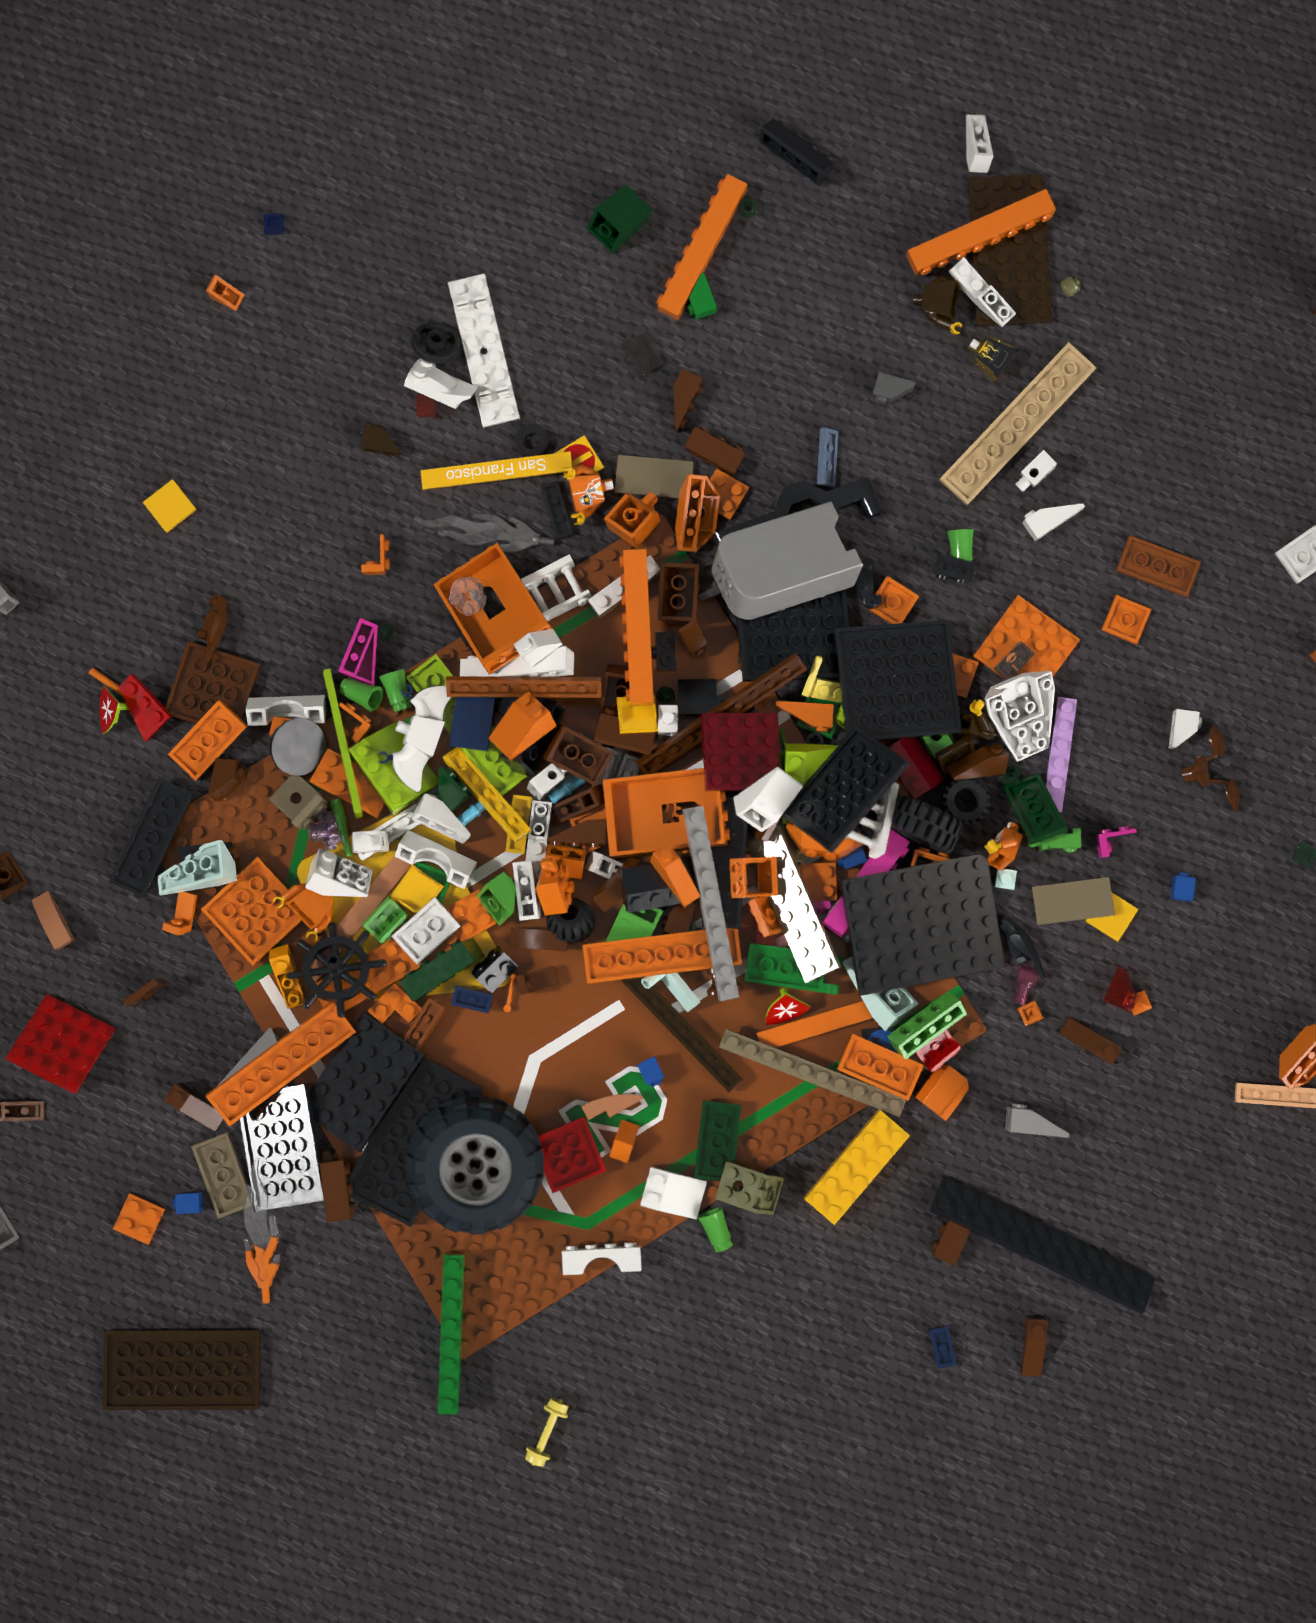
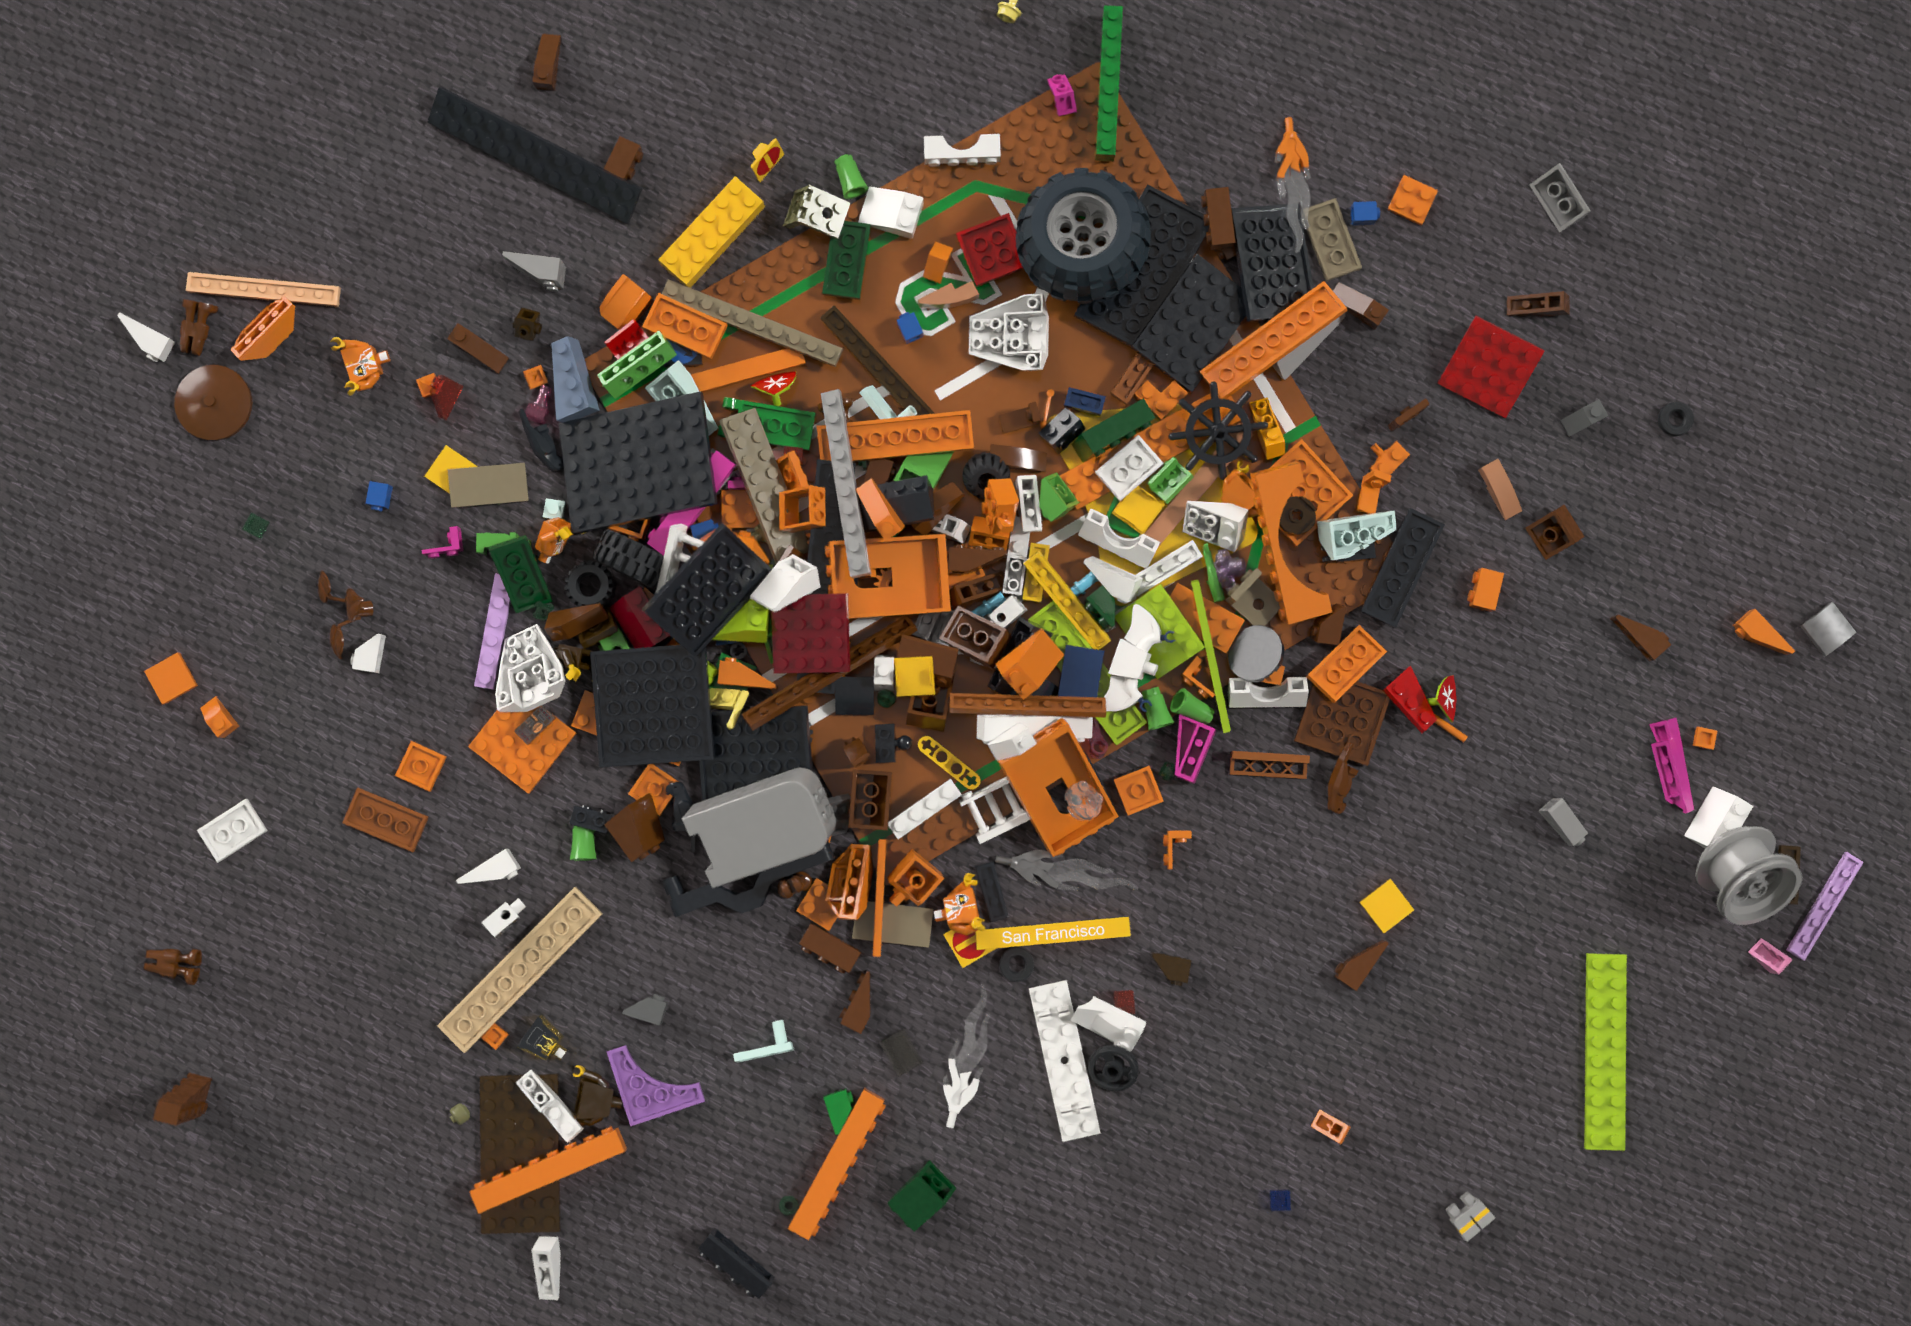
camera: 175 degrees right, 0 degrees up
(68, 818) = (1485, 590): none -> orange brick
(88, 220) = (1462, 1220): none -> light grey hips
(165, 949) = (1388, 459): none -> orange plate
(181, 1369) = (1370, 56): dark brown plate -> none
(198, 445) = (1357, 968): none -> reddish brown slope
(257, 875) = (1307, 515): none -> dark brown plate
(280, 905) = (1272, 491): none -> orange arch
(285, 646) = (1272, 757): none -> dark orange fence
(370, 841) = (1184, 555): white torso -> none
(414, 611) = (1138, 790): none -> orange plate
(454, 660) = (1097, 739): none -> clear pink pin
(499, 1321) = (1062, 94): none -> dark pink bracket
(546, 1066) = (1012, 333): none -> white wedge
(583, 342) = (961, 1066): none -> piece
(600, 635) = (951, 759): none -> yellow beam
(638, 627) = (911, 762): orange brick -> none
(667, 500) = (879, 900): none -> orange tile
(751, 508) = (789, 886): none -> reddish brown piece
(760, 355) = (781, 1045): none -> light aqua piece
(804, 1245) = (766, 158): none -> yellow piece
(827, 457) = (715, 938): sand blue plate -> none
(890, 306) = (645, 1096): none -> medium lavender plate
(907, 559) = (637, 829): none -> reddish brown slope
(942, 1347) = (635, 62): dark blue plate -> none
(992, 1006) = (571, 381): none -> sand blue wedge
(1039, 360) = (494, 1036): none -> orange tile
(1041, 1066) = (527, 324): none -> dark brown brick
(1208, 1022) = (361, 363): none -> orange torso

